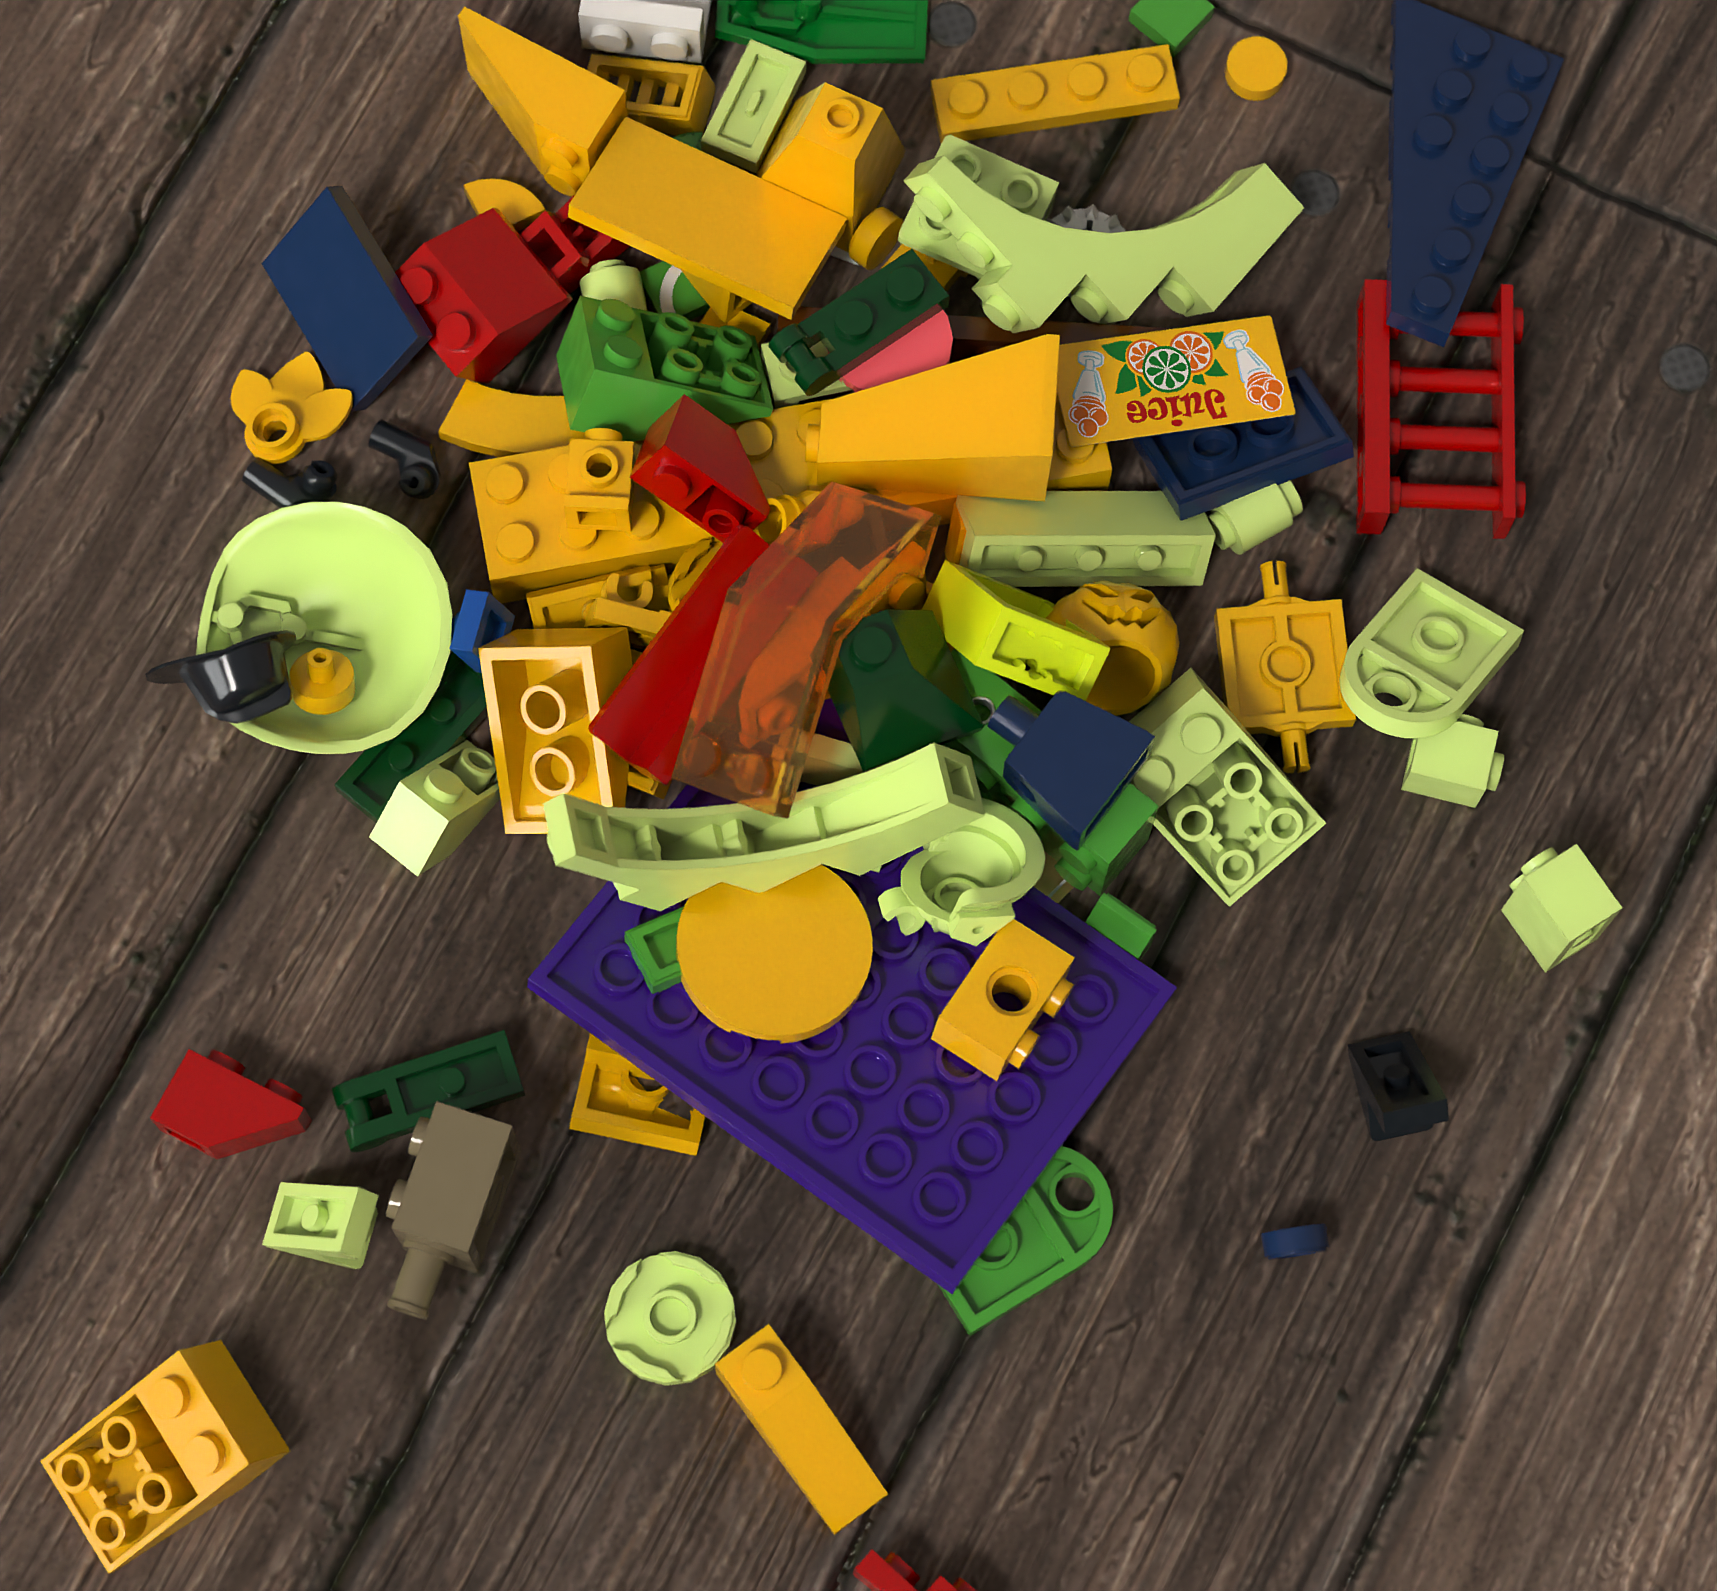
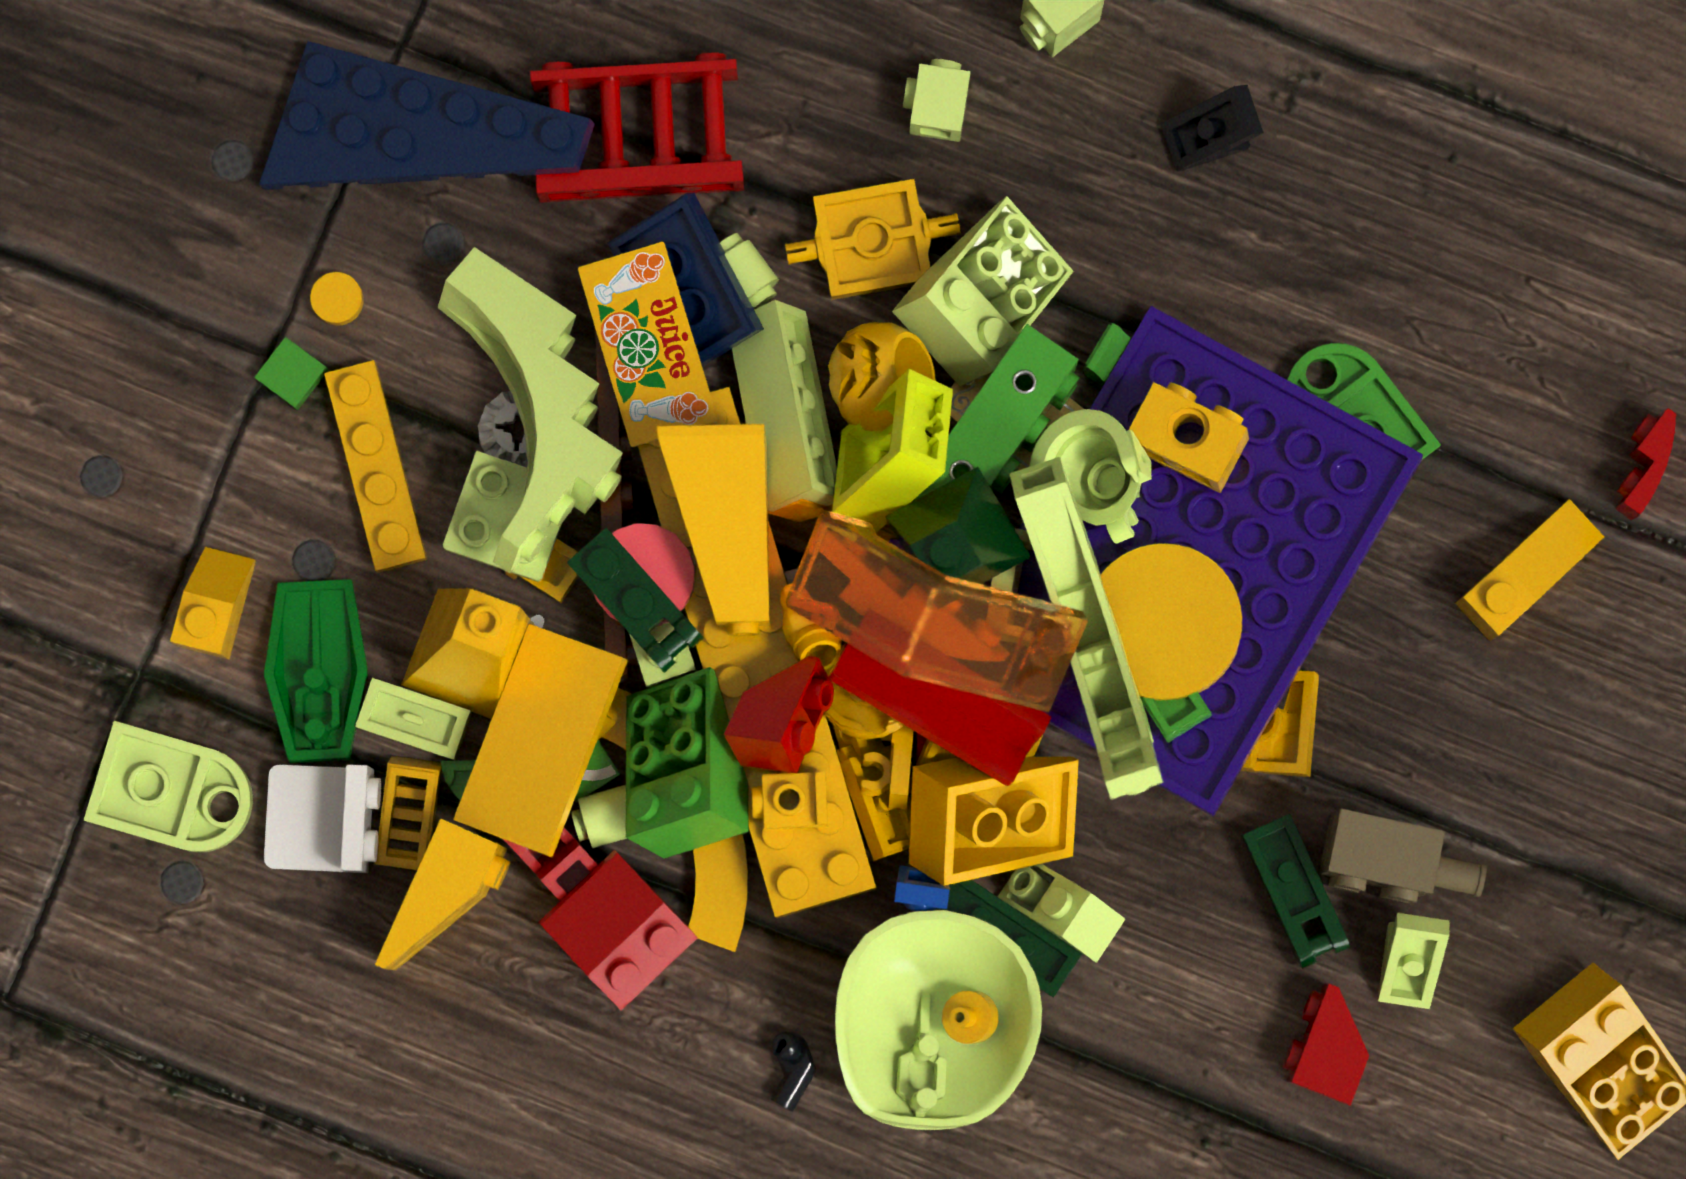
camera: 90 degrees left, 10 degrees up
(235, 681) = (989, 1080): black piece -> none
(289, 402) = (716, 1081): yellow plate -> none
(346, 297) = (631, 1041): dark blue tile -> none
(414, 458) = (759, 969): black arm -> none
(512, 199) = (521, 923): yellow tile -> none
(670, 1318) = (1452, 680): yellowish green tile -> none
(875, 238) = (534, 607): yellow tile -> none
(1070, 760) = (1006, 394): dark blue torso -> none
(1295, 1241) = (1343, 200): dark blue tile -> none
(1427, 651) = (857, 122): yellowish green tile -> none

